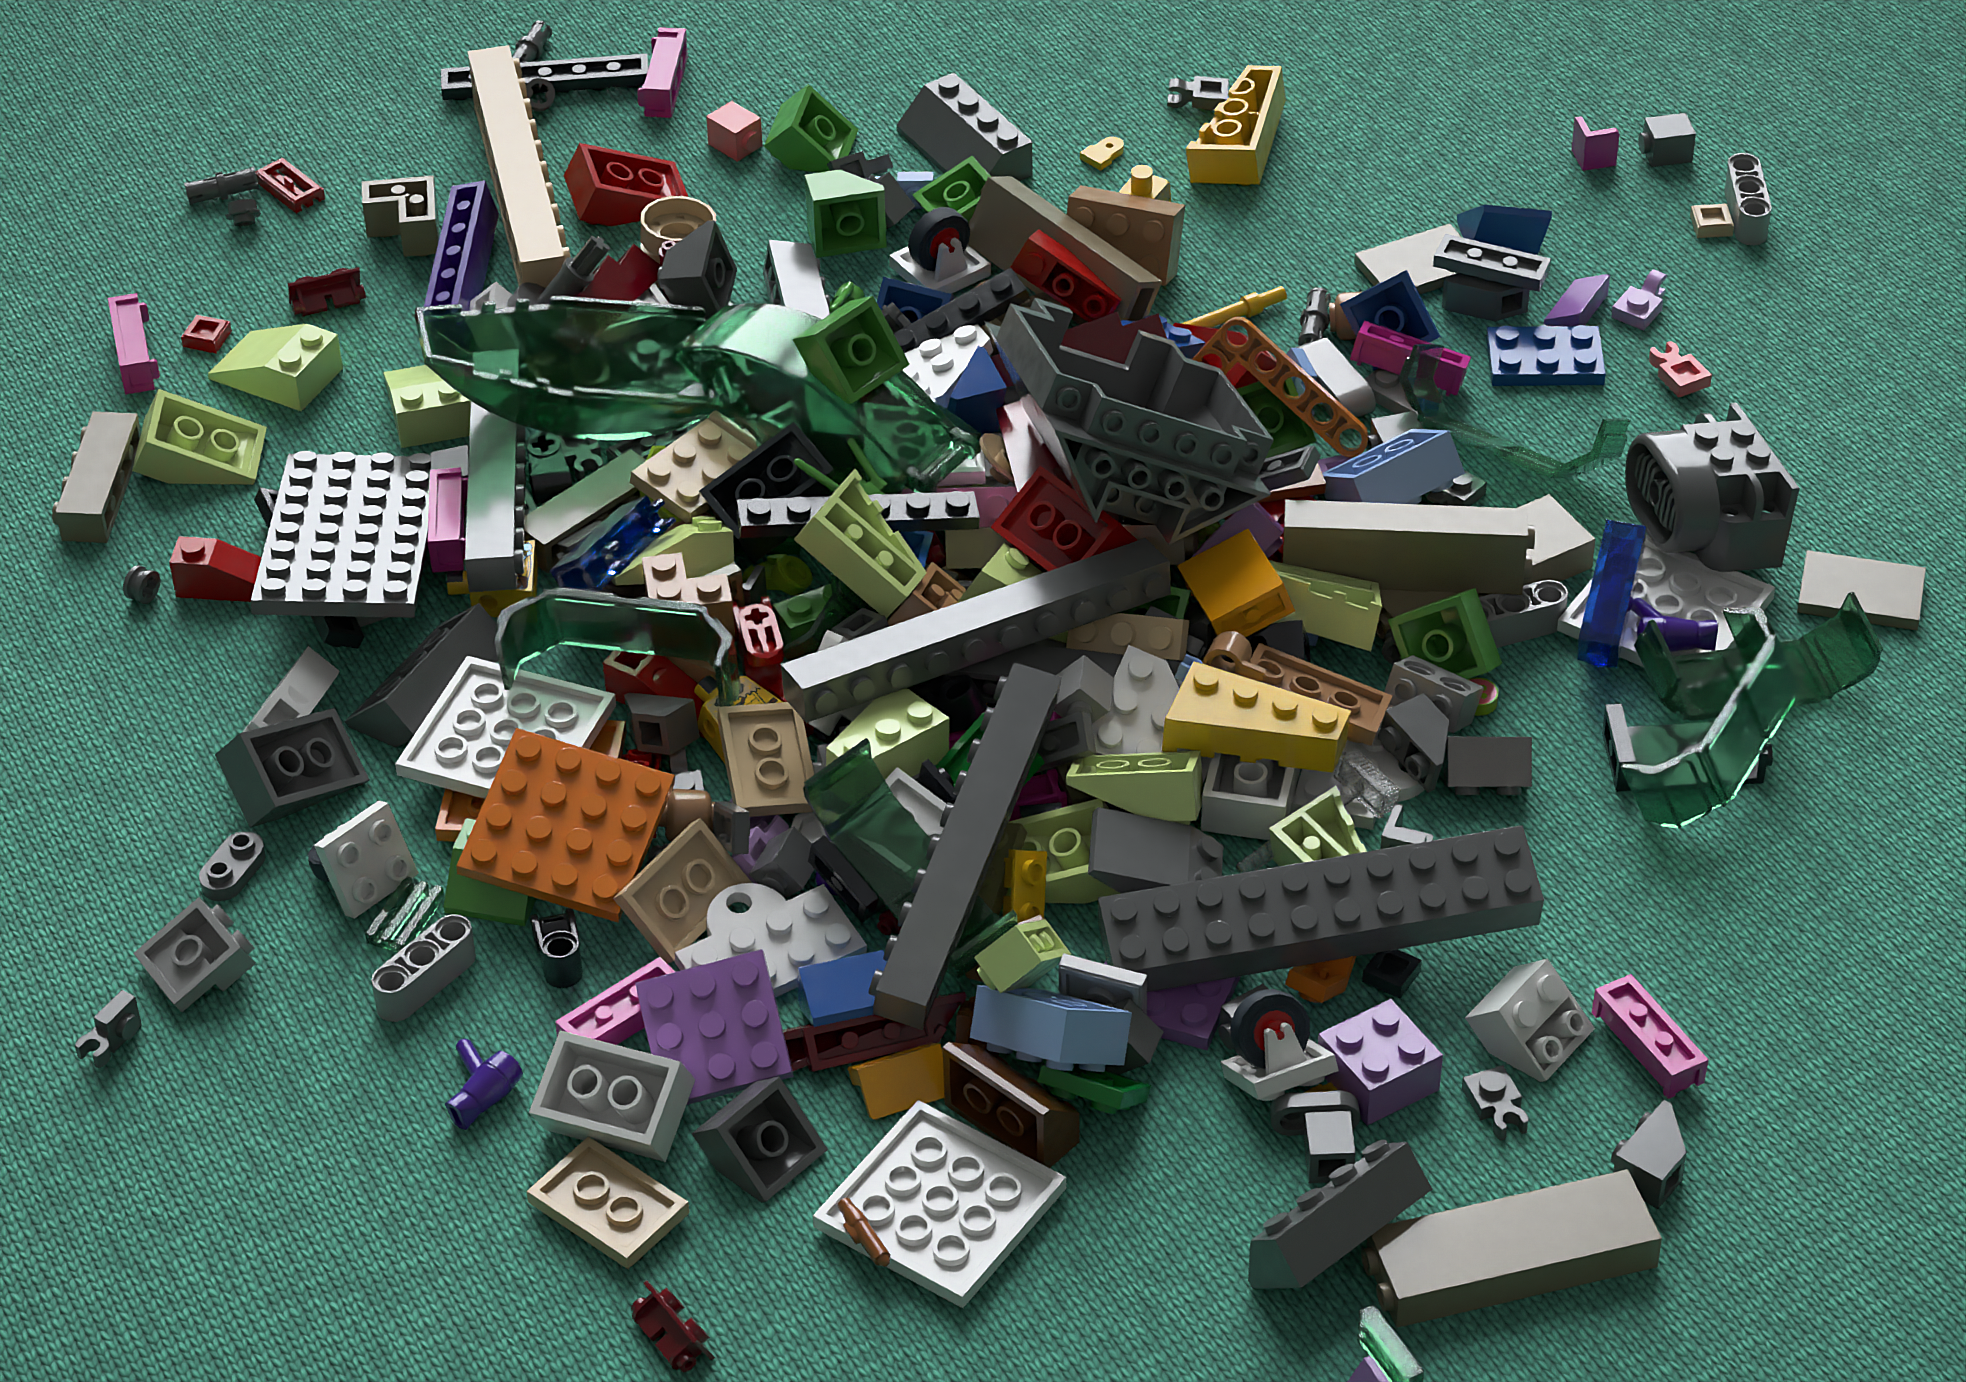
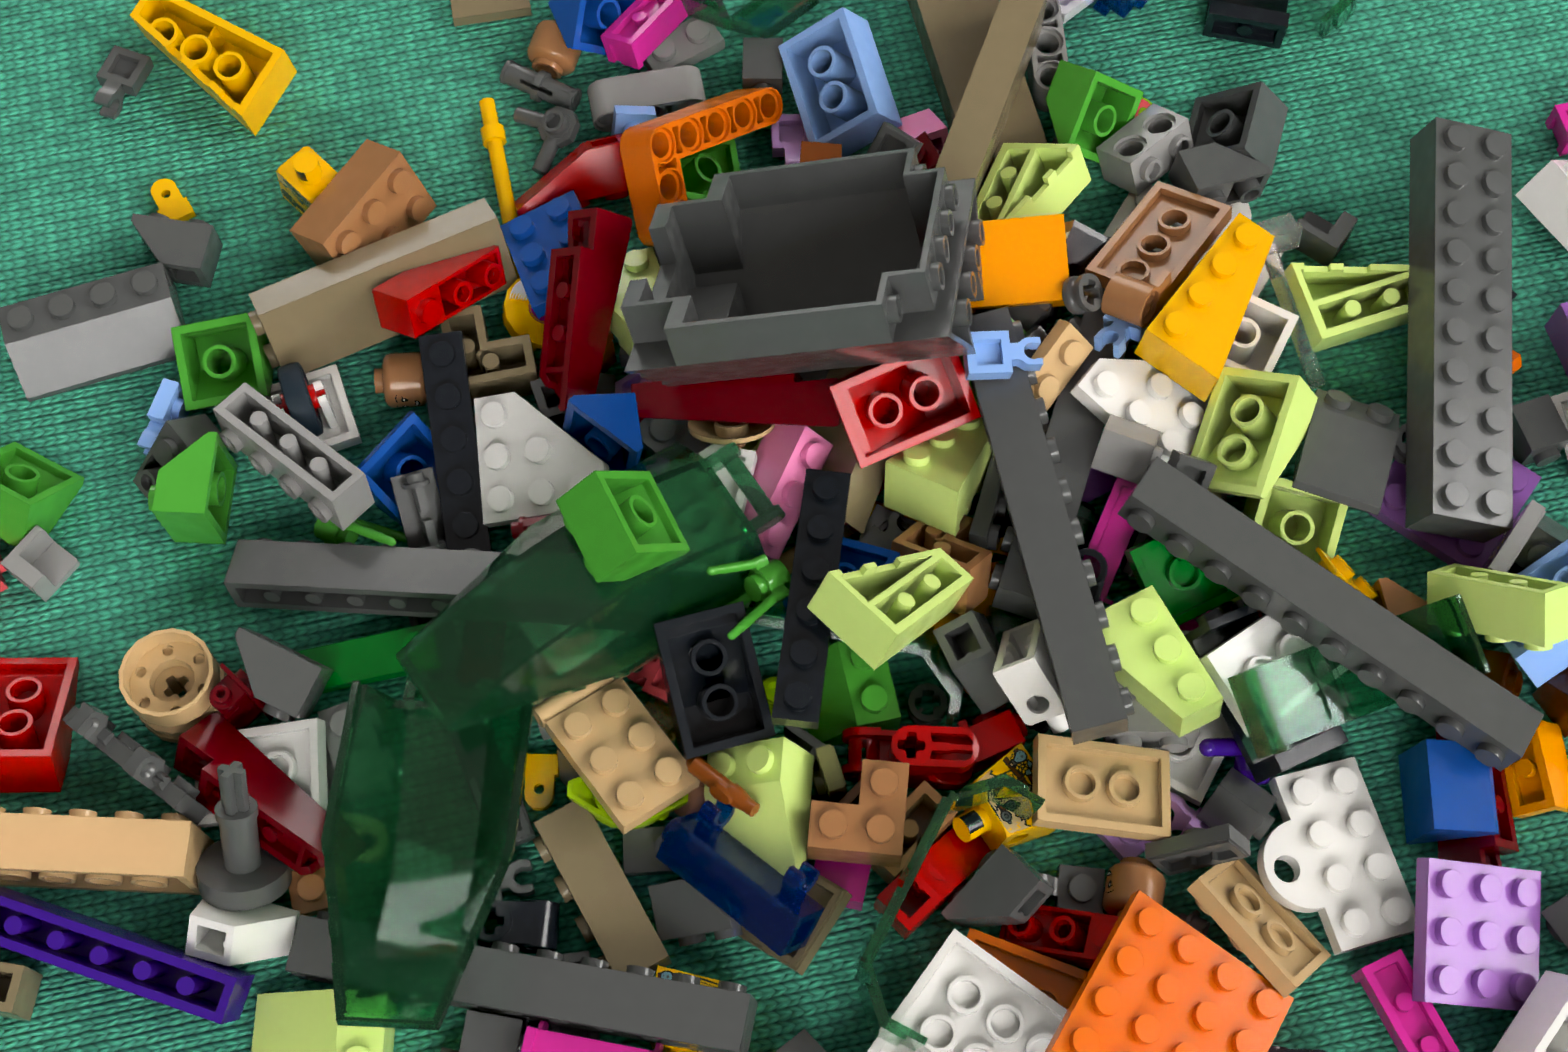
camera: 75 degrees left, 25 degrees up
(616, 228) = (136, 760): none -> dark grey hinge
(681, 515) = (721, 787): none -> dark orange piece
(758, 162) = (40, 563): none -> light grey panel
(857, 165) = (104, 462): dark grey plate -> none
(880, 241) = (293, 456): none -> light grey brick
(1059, 160) = (185, 247): none -> dark grey slope
(1111, 549) = (997, 356): none -> light blue plate
(1222, 612) = (1082, 293): none -> dark grey bush
(1279, 330) = (557, 129): none -> dark grey piece

